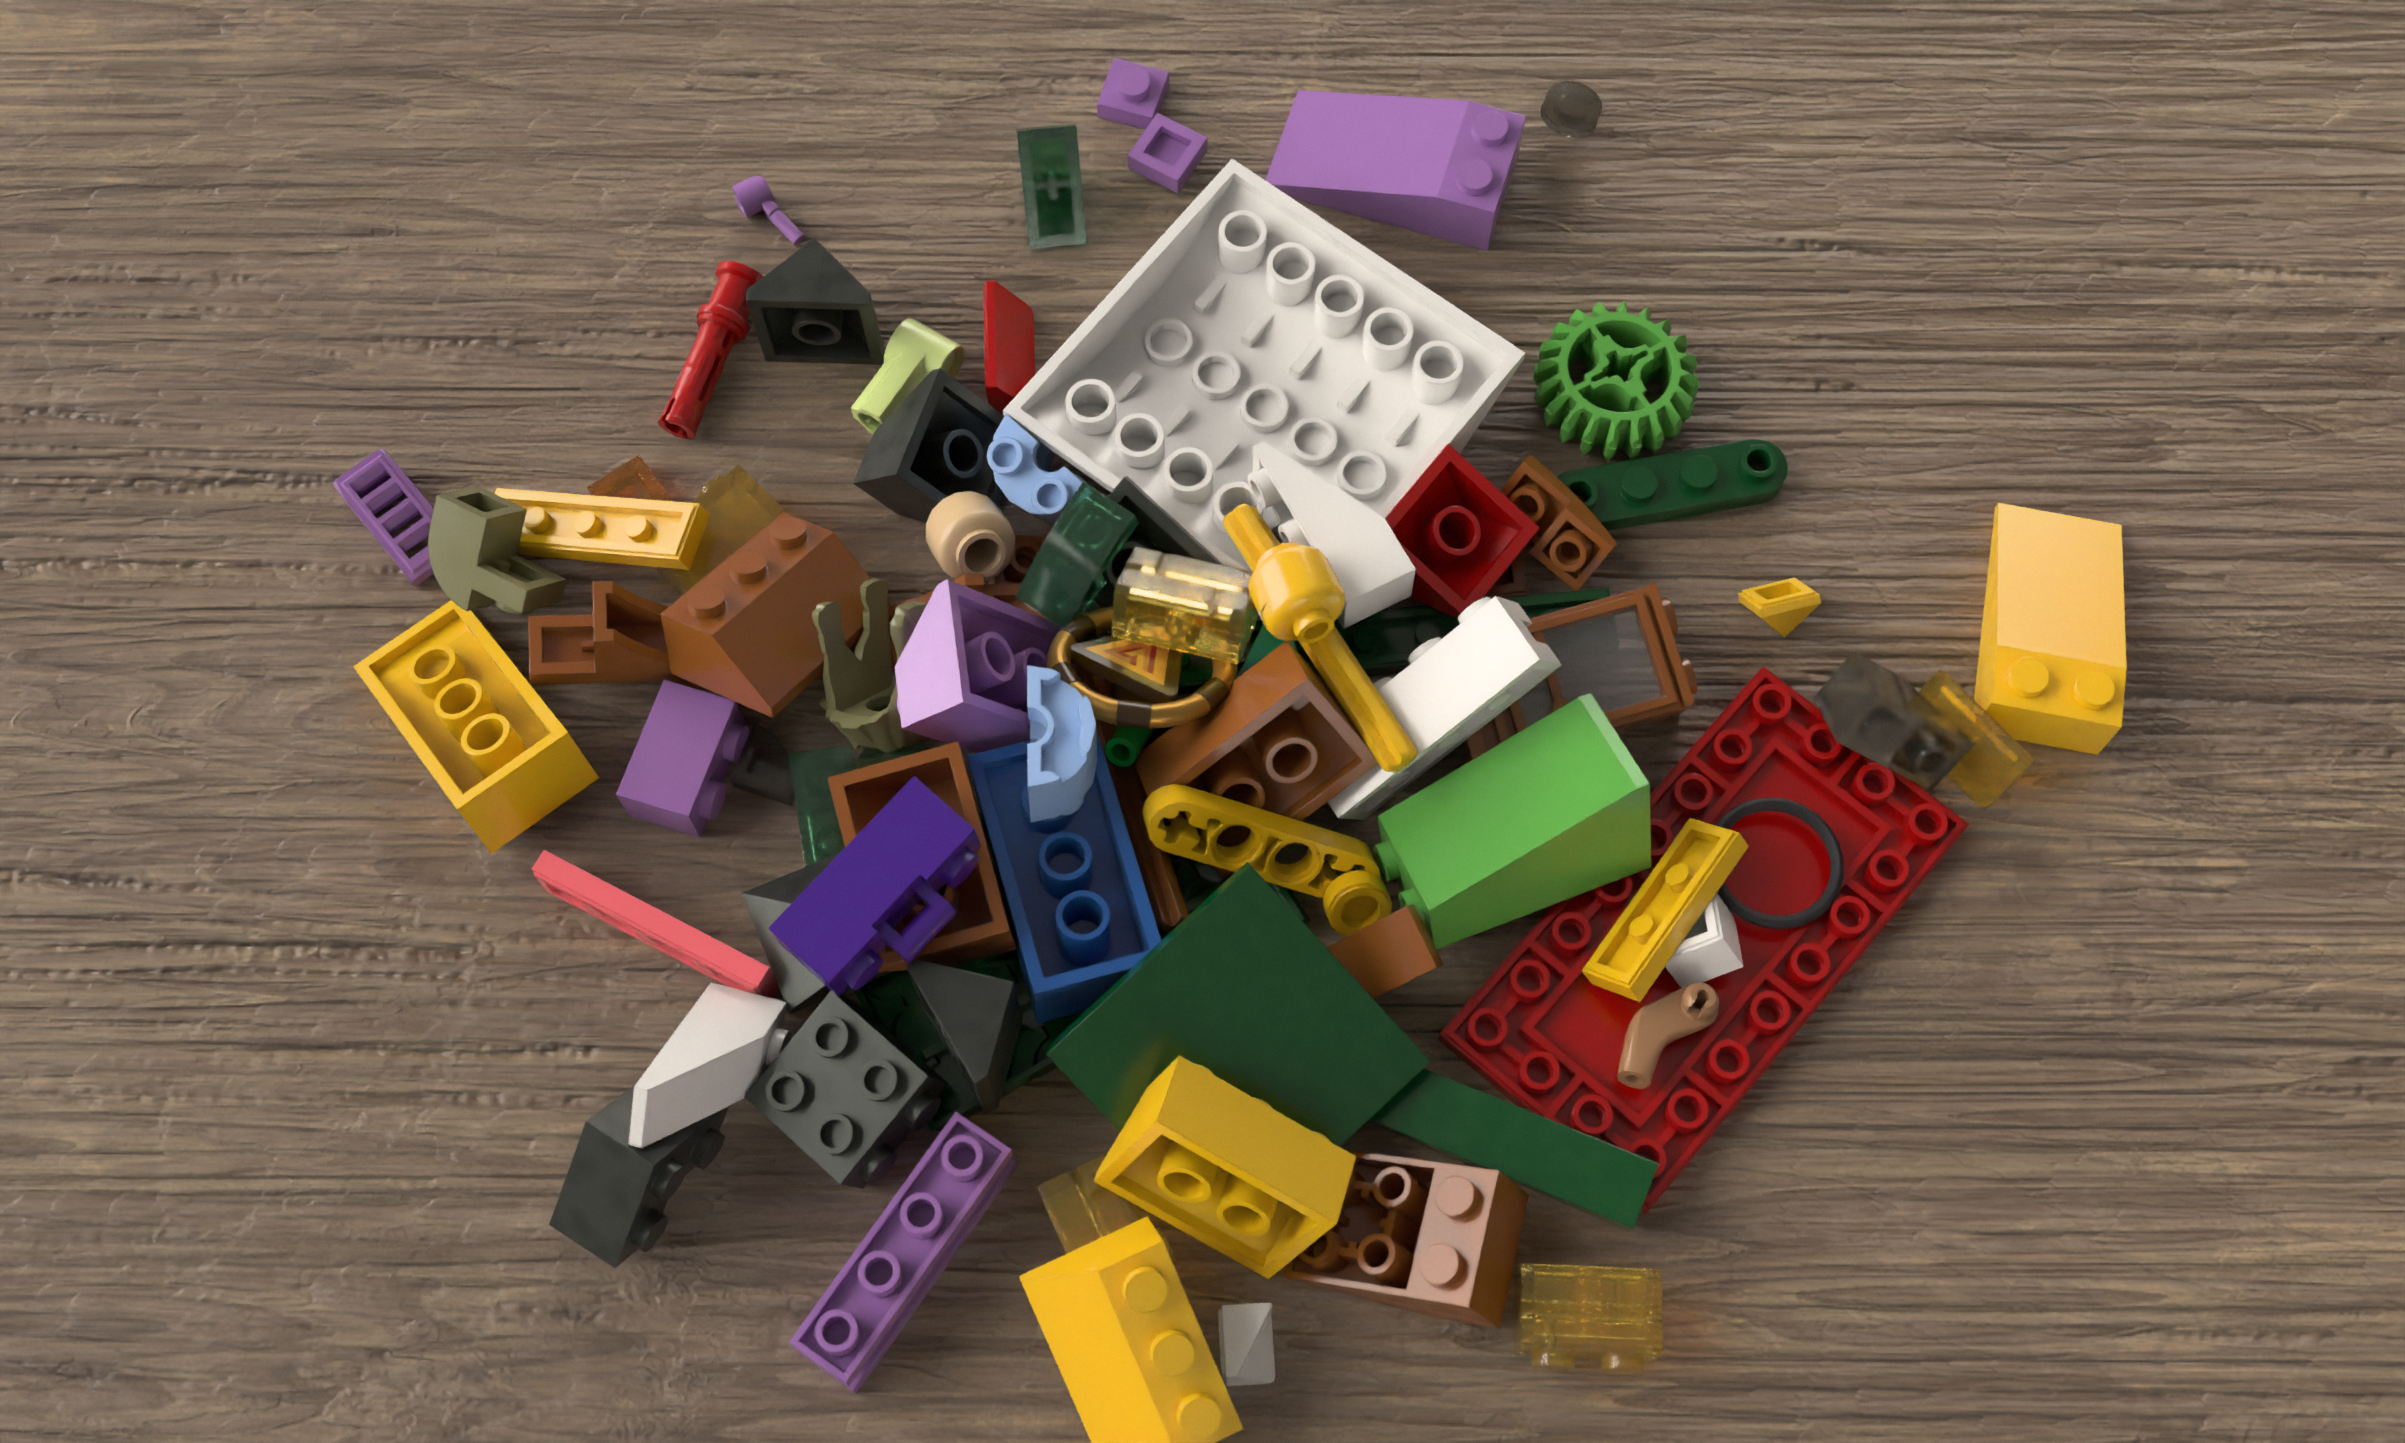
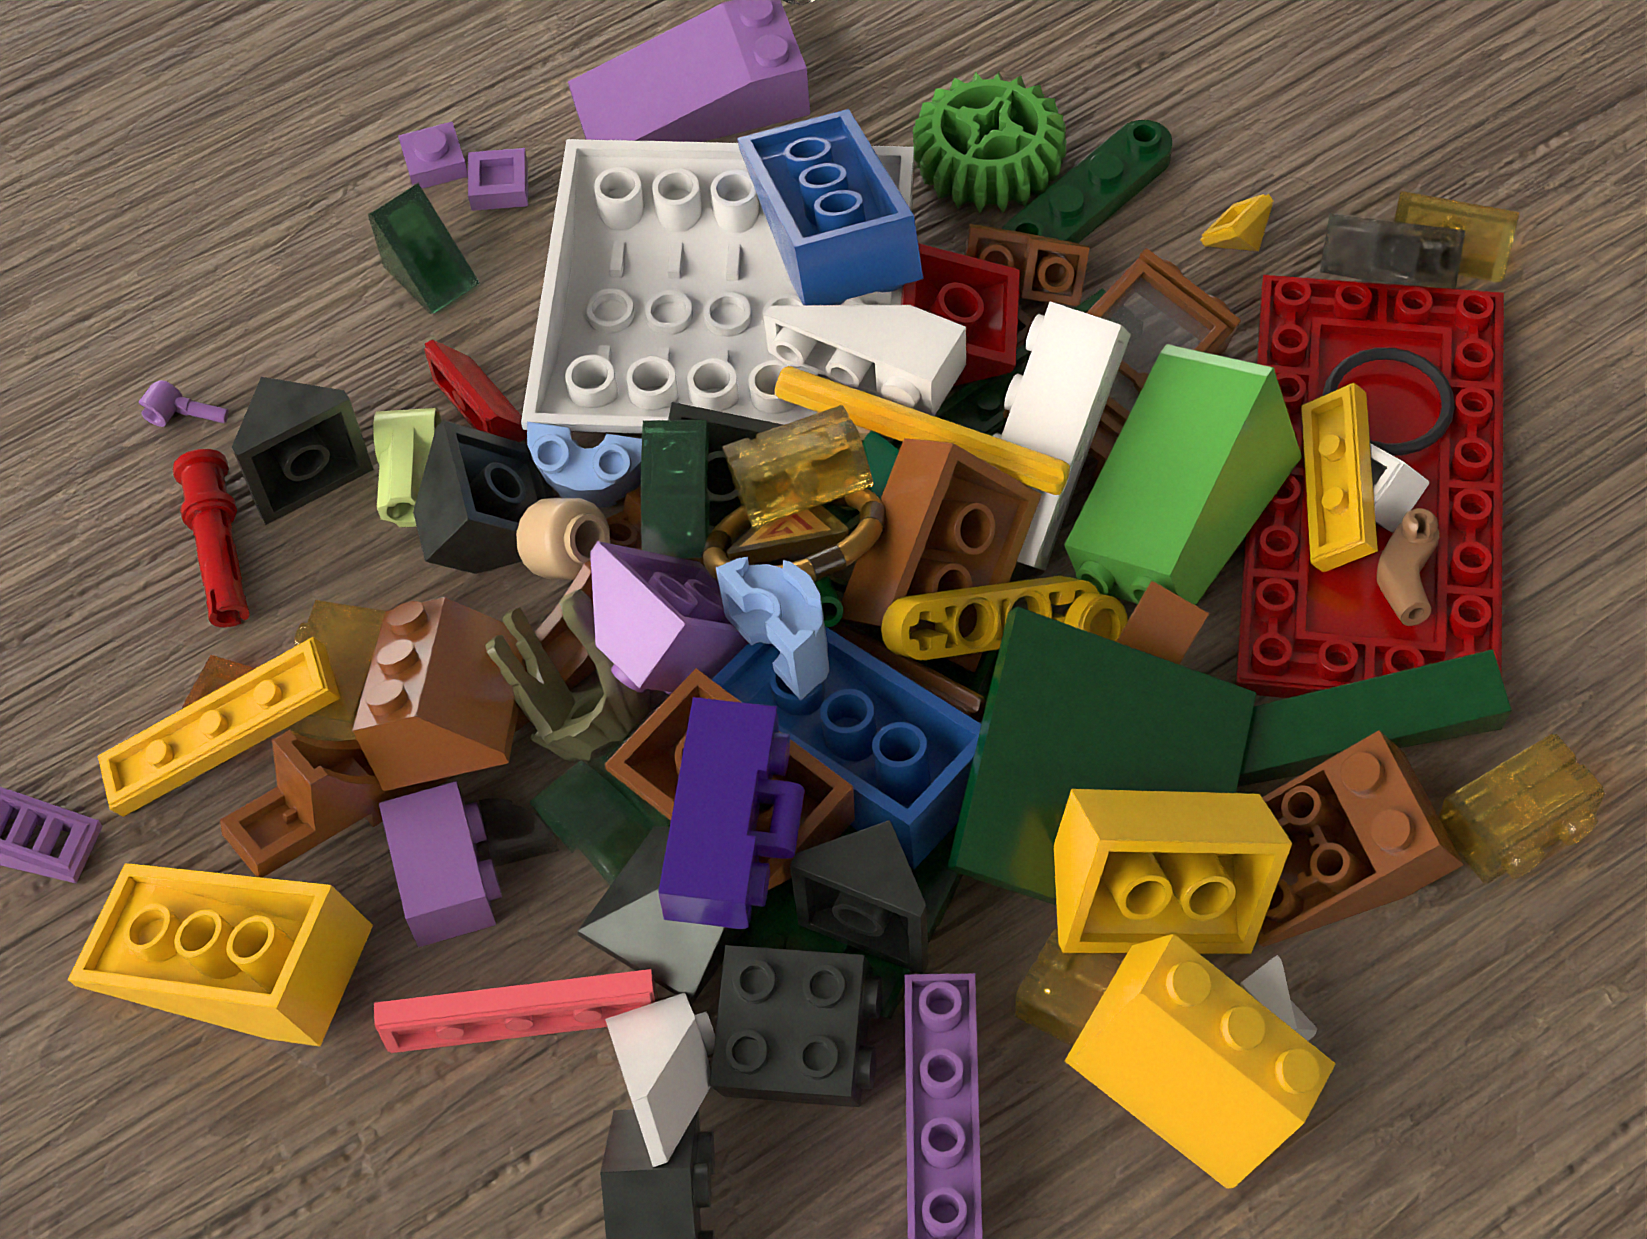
camera: 30 degrees left, 10 degrees down
(476, 557) = (123, 810): olive brick -> none
(1296, 593) = (888, 394): yellow head -> none
(1396, 371) = (832, 209): none -> blue slope
(2054, 629) = (1454, 126): yellow slope -> none

